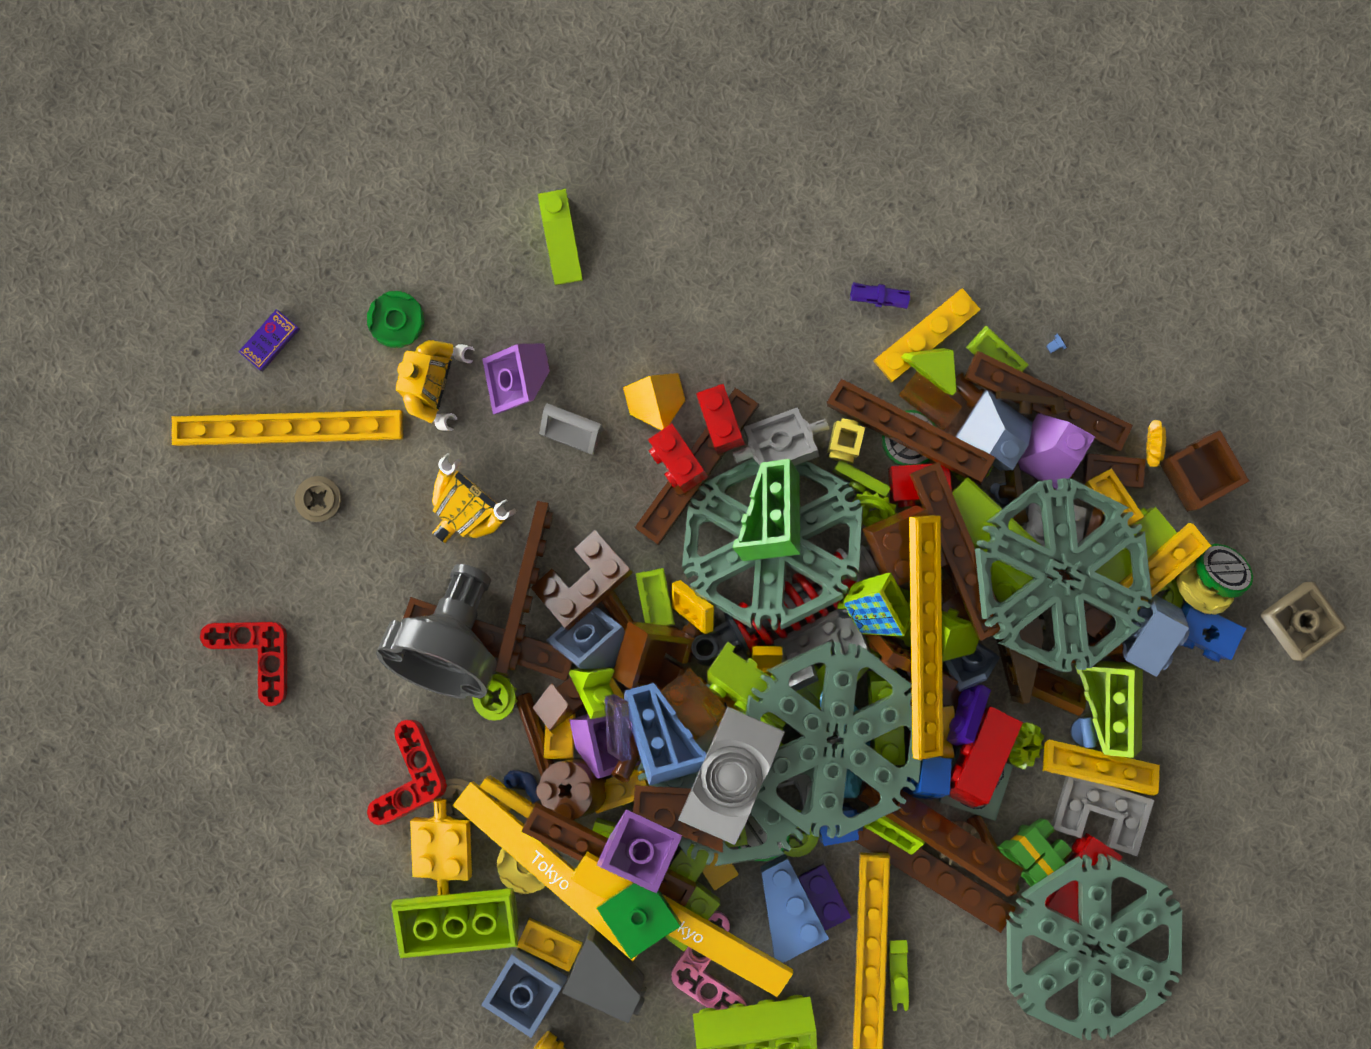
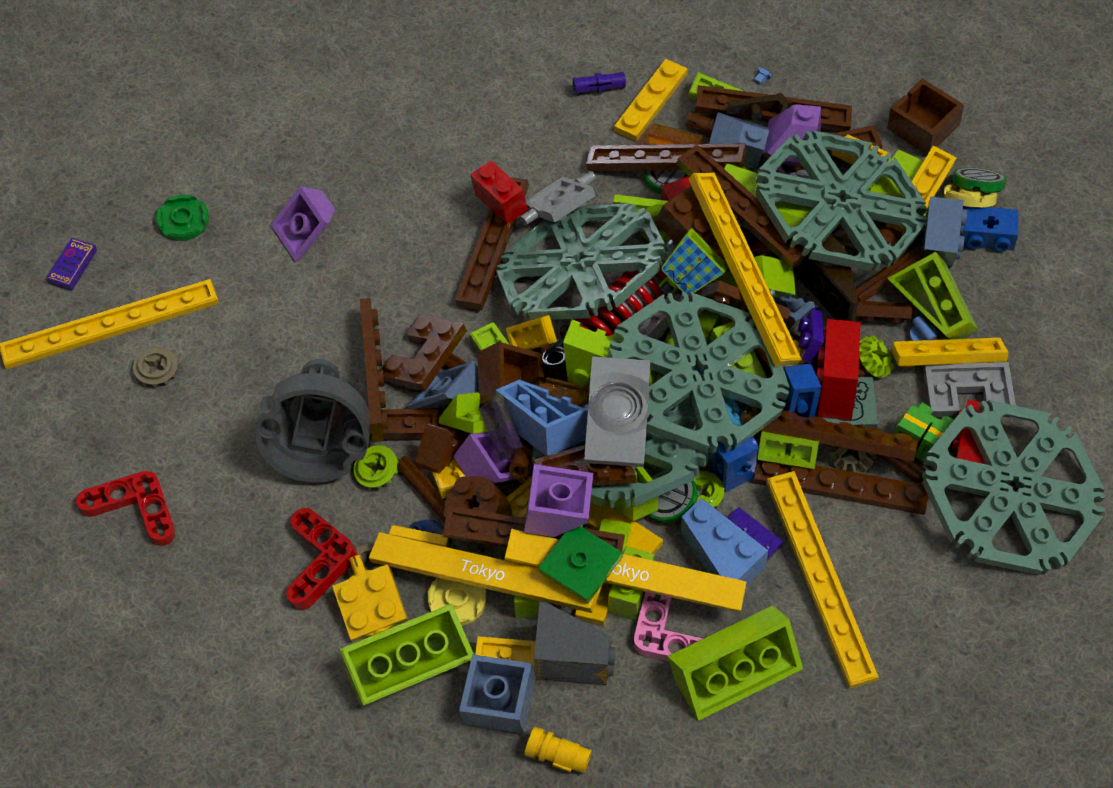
camera: 20 degrees left, 30 degrees down
(424, 378) = (225, 244): yellow torso -> none
(464, 505) = (295, 328): yellow torso -> none
(560, 236) = (307, 116): lime slope -> none
(570, 429) = (369, 250): light grey tile -> none
(655, 399) = (432, 203): yellow slope -> none
(678, 459) = (473, 230): red brick -> none
(773, 515) = (571, 234): bright green wedge -> none
(845, 440) = (613, 180): light yellow brick -> none
(898, 973) = (848, 575): lime piece -> none
(936, 366) = (665, 109): lime slope -> none
(1155, 443) = (876, 109): yellow gear -> none
(1321, 622) = (1064, 196): dark tan brick -> none

